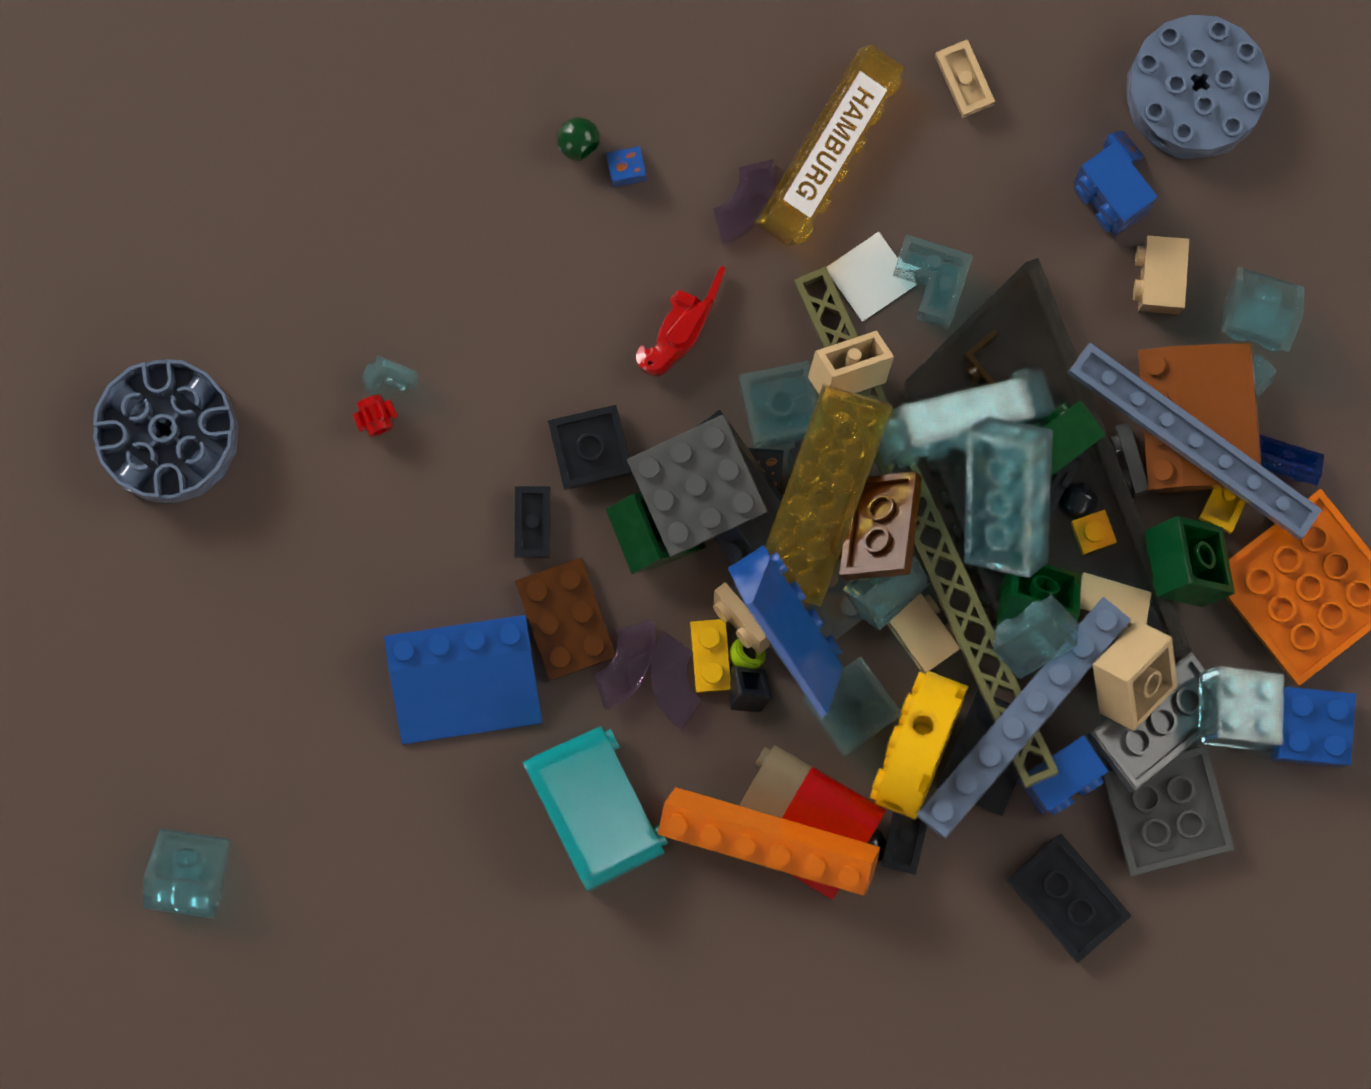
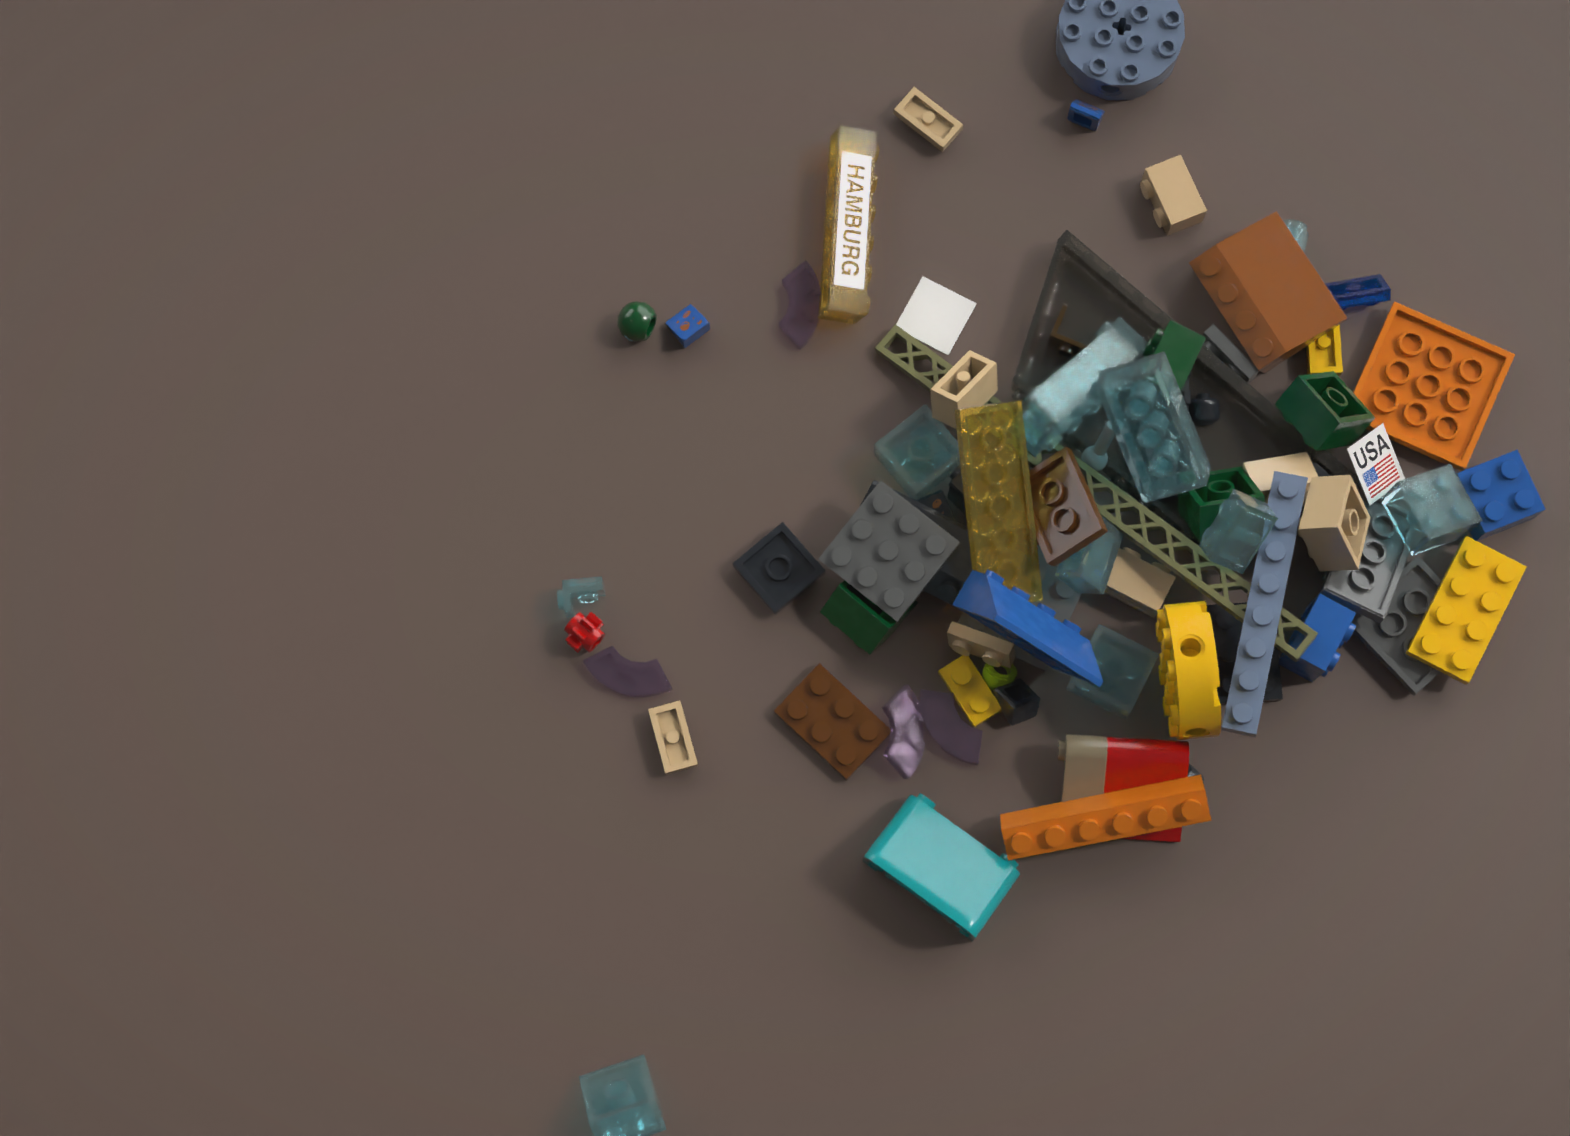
camera: 25 degrees left, 5 degrees down
(174, 397) = (391, 708): sand blue brick -> none
(394, 477) = (628, 676): none -> clear purple tile
(407, 557) = (673, 737): none -> tan plate
(463, 679) = (774, 815): blue slope -> none
(532, 522) = (763, 654): black plate -> none
(679, 329) = (802, 435): red animal -> none
(904, 844) = (1214, 762): black plate -> none
(940, 270) = (991, 280): clear light blue brick -> none
(946, 493) = (1096, 455): none -> light grey bar
(1069, 898) = (1374, 739): black plate -> none
(1093, 532) = (1230, 429): light orange plate -> none
(1114, 190) = (1099, 145): blue brick -> none
(1194, 441) = (1277, 309): sand blue plate -> none
(1213, 637) = (1375, 463): none -> sticker
(1222, 821) = (1466, 610): none -> yellow plate
(1263, 310) = (1271, 181): clear light blue brick -> none

